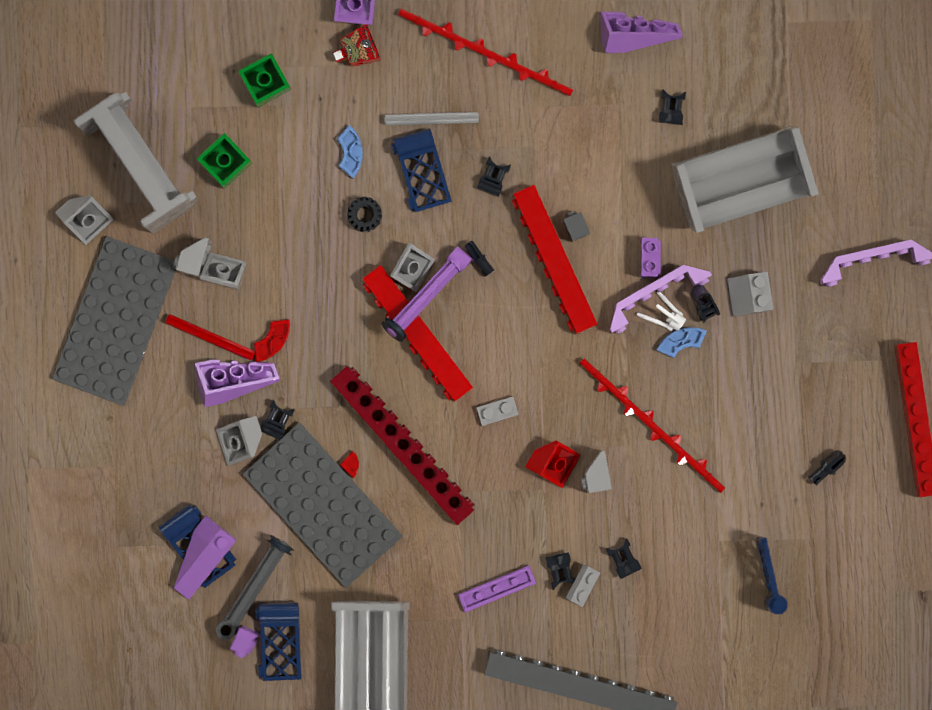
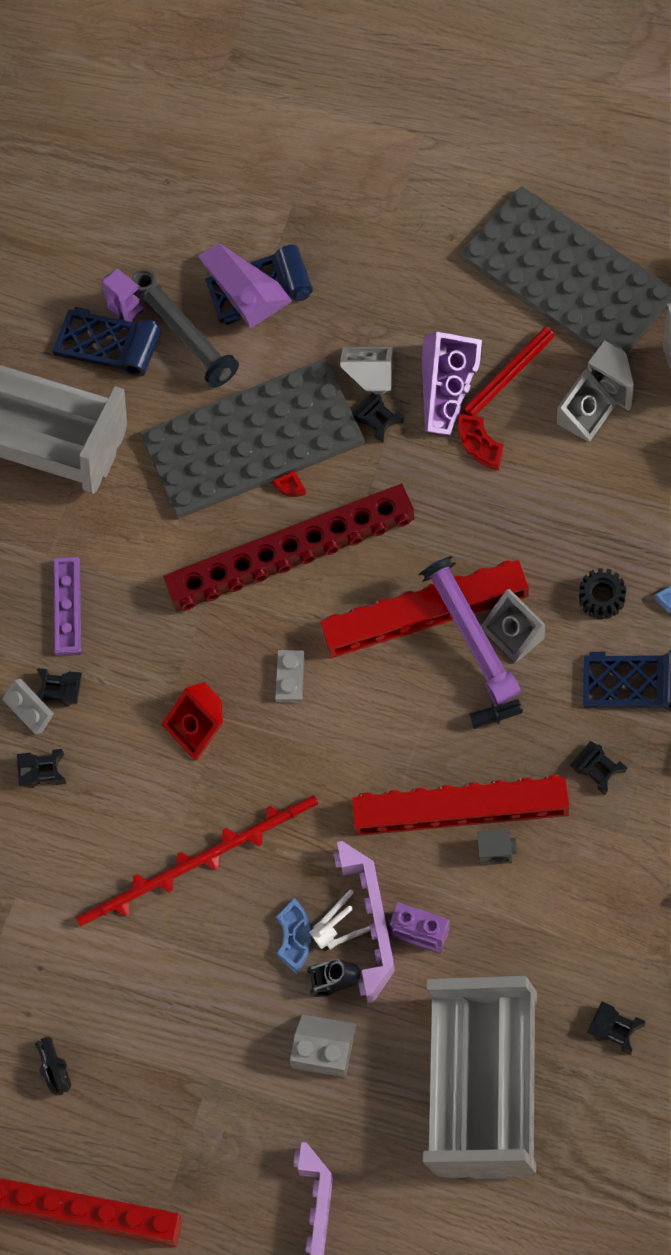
camera: 120 degrees right, 20 degrees down
(597, 475) = (157, 764): light grey slope -> none

